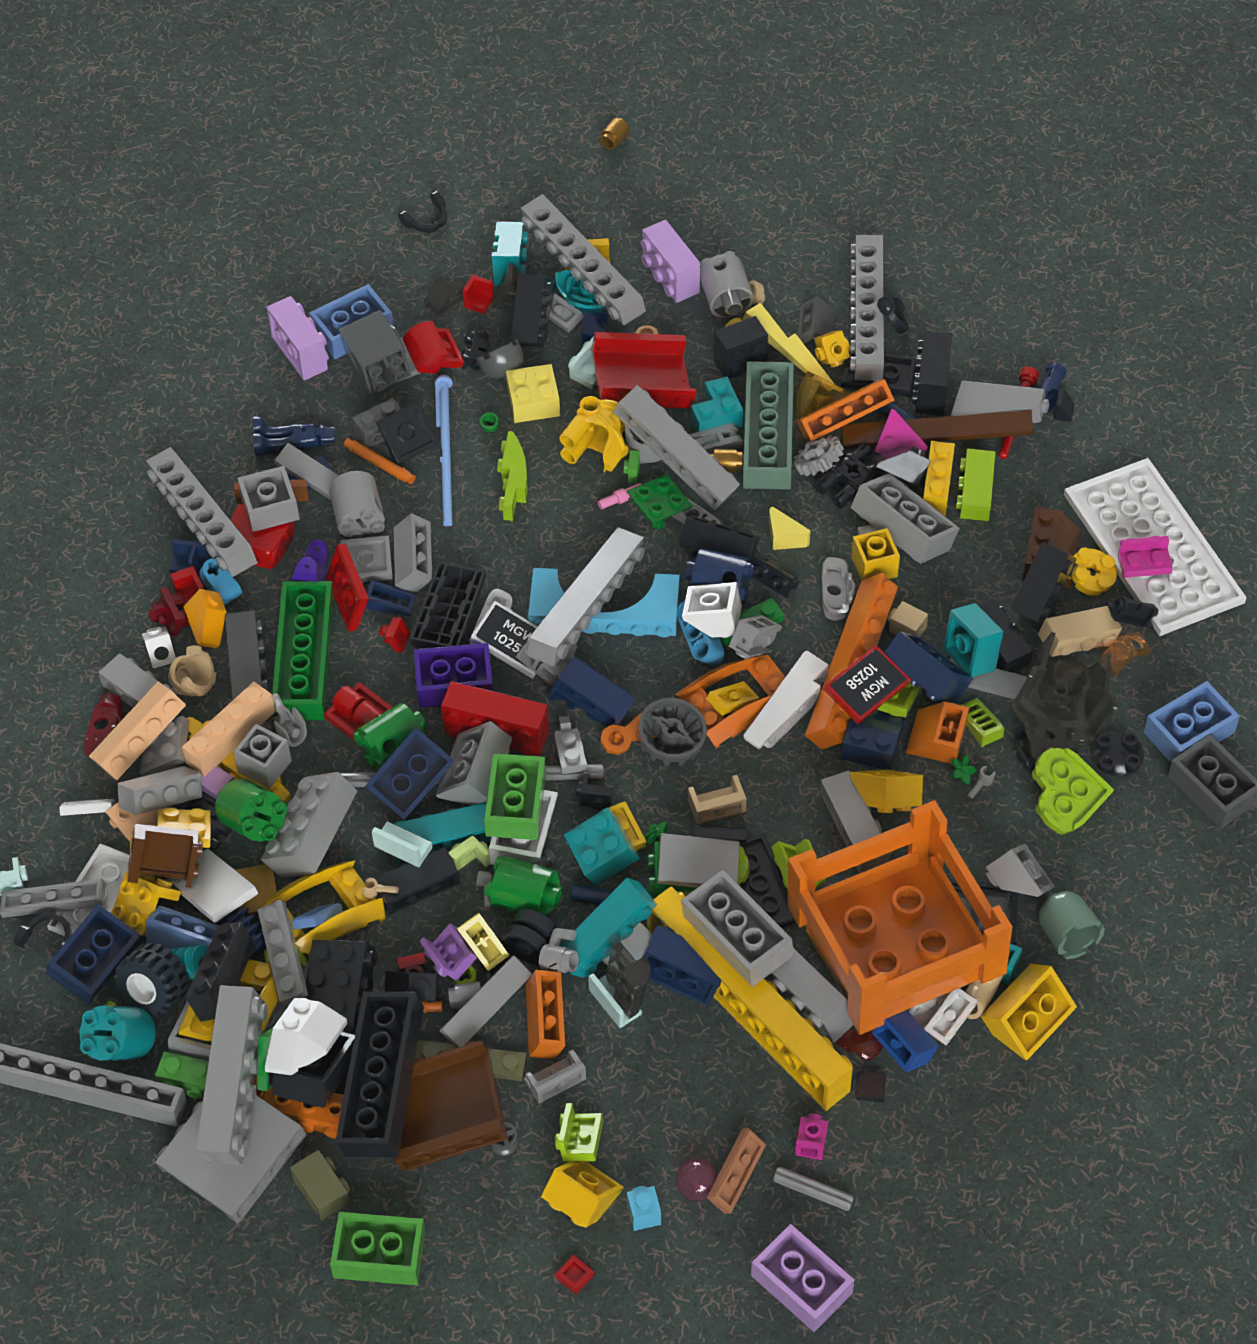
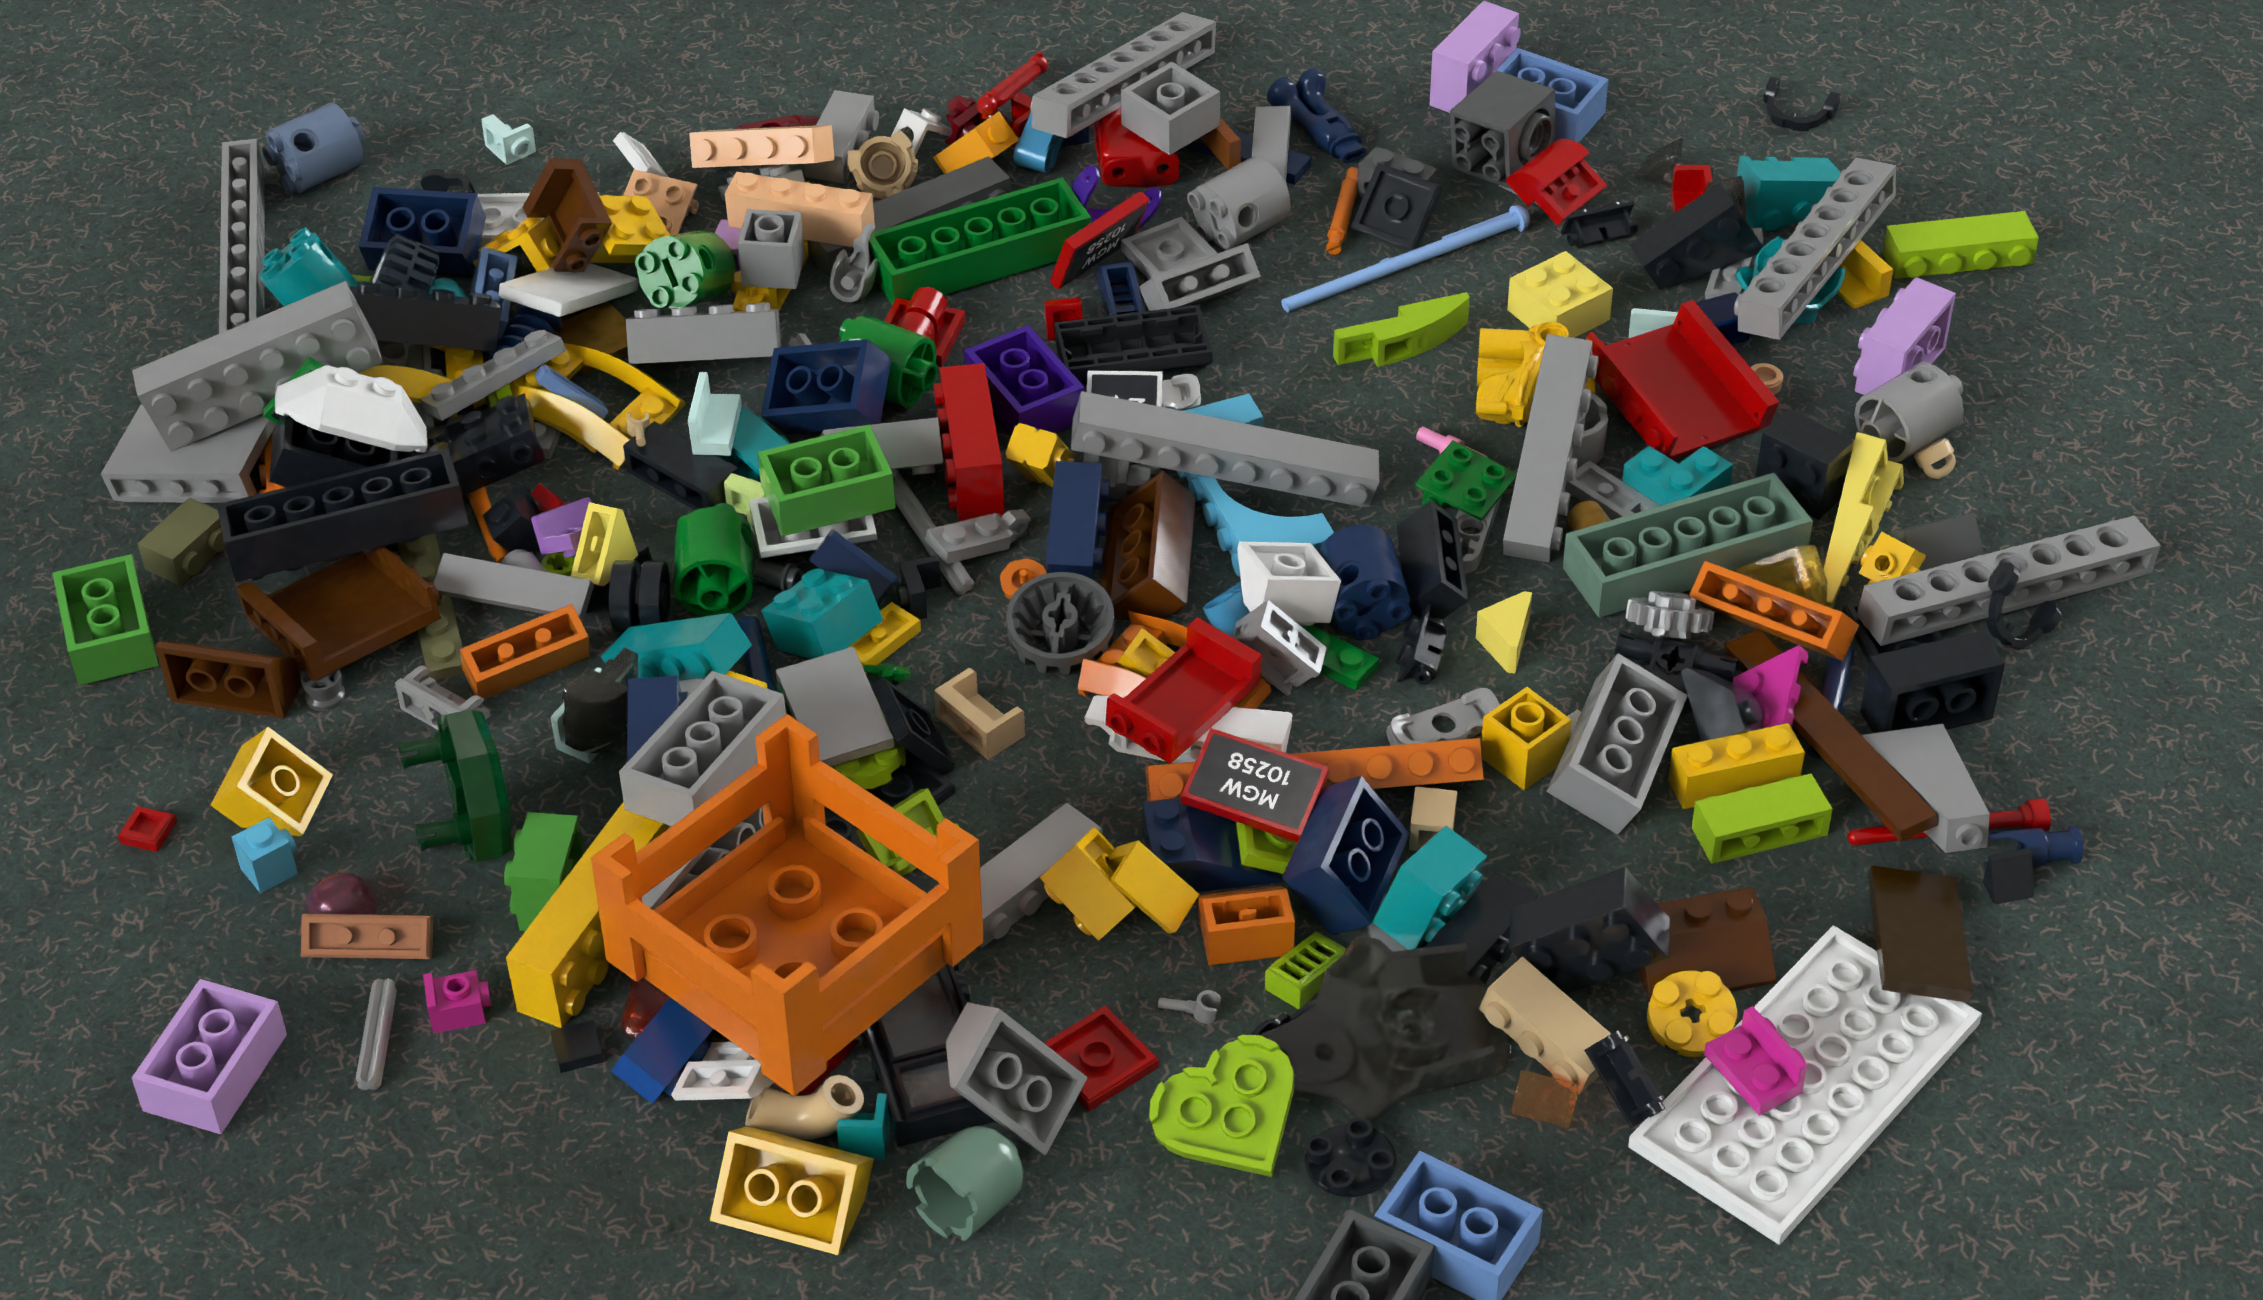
camera: 65 degrees right, 10 degrees down
(52, 898) = (495, 180): light grey tile -> none
(159, 790) = (674, 187): light grey brick -> none
(160, 575) = (1012, 85): none -> red wheel
(472, 1186) = (229, 678): none -> reddish brown slope
(489, 418) = (1481, 273): green hinge -> none
(501, 359) = (1590, 244): dark grey cylinder -> none
(533, 685) = (1036, 453): none -> yellow brick
(558, 958) = (609, 621): light grey piece -> none
(569, 816) = (843, 557): none -> dark blue panel
(579, 1135) = (352, 747): lime bracket -> none
(598, 200) = (1960, 244): none -> lime brick
(614, 133) = (2106, 219): pearl gold brick -> none
(632, 466) = (1506, 438): bright green plate -> none
(632, 667) = (1149, 549): none -> reddish brown slope
(673, 1069) = (474, 784): none -> dark green brick
(746, 1055) = (542, 860): none -> bright green brick
(773, 690) = (1186, 692): none -> red panel
(909, 759) = (1152, 885): none -> yellow panel
(962, 770) = (1199, 972): green plant -> none
(993, 836) = (1105, 1054): none -> red tile
(1086, 457) = (1919, 934): none -> dark brown tile

